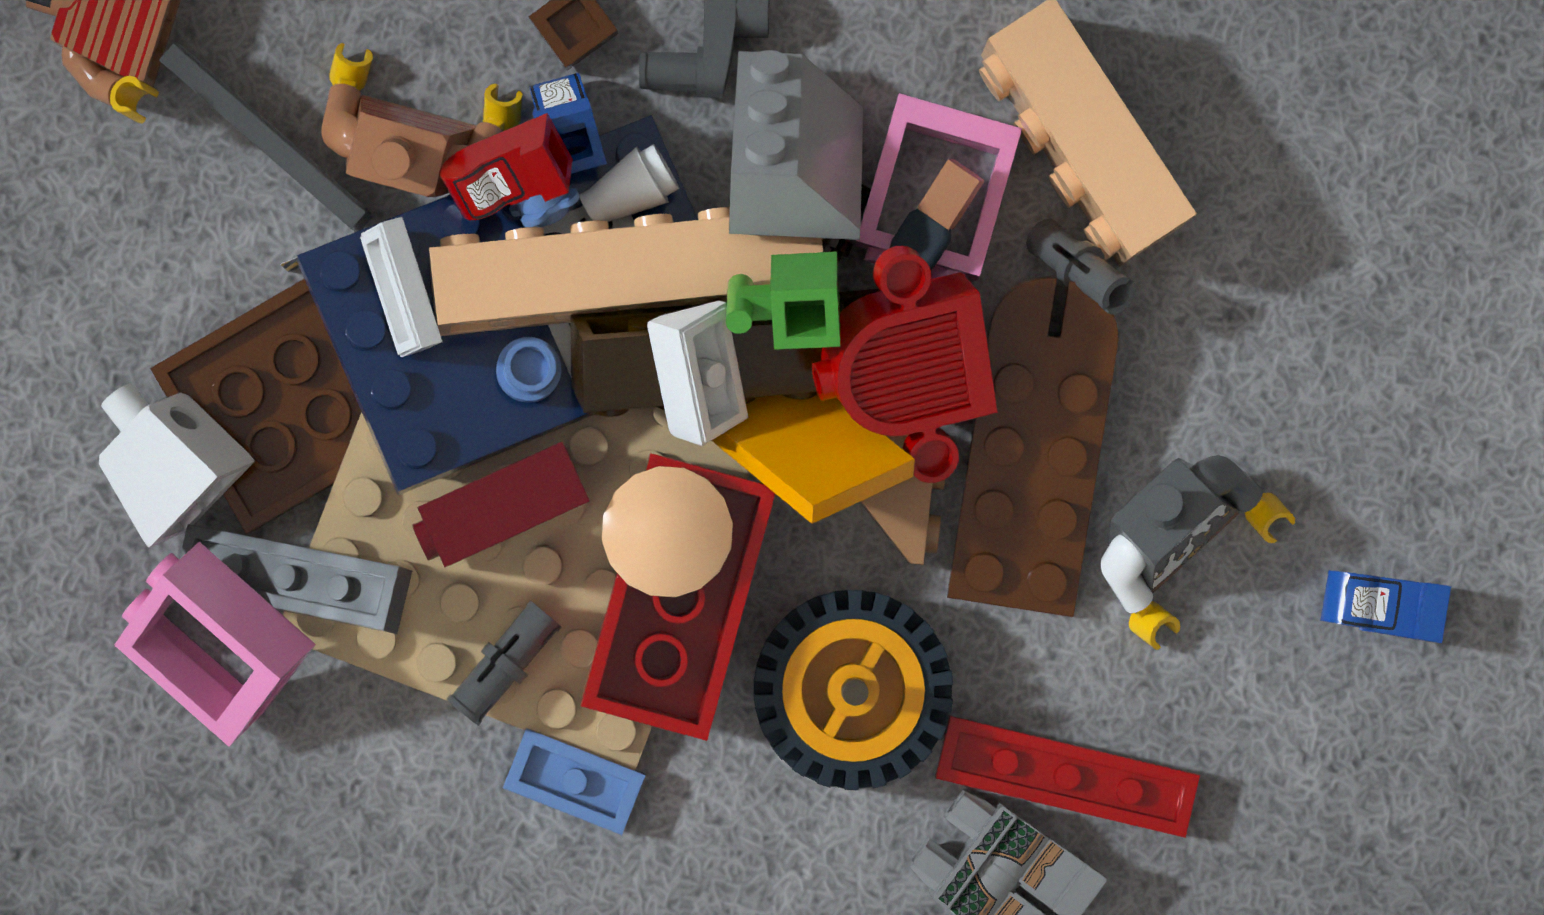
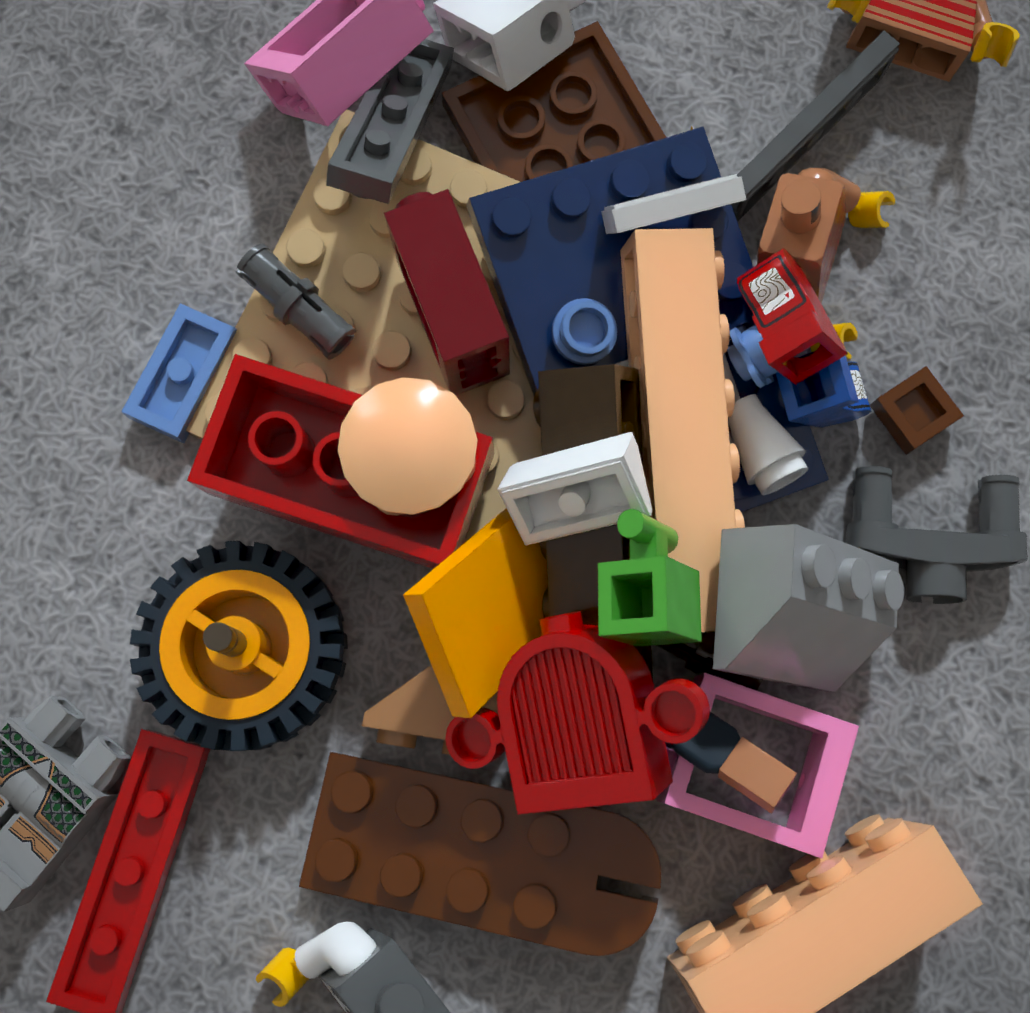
camera: 90 degrees right, 10 degrees down
(1102, 283) = (654, 940): dark grey pin -> none

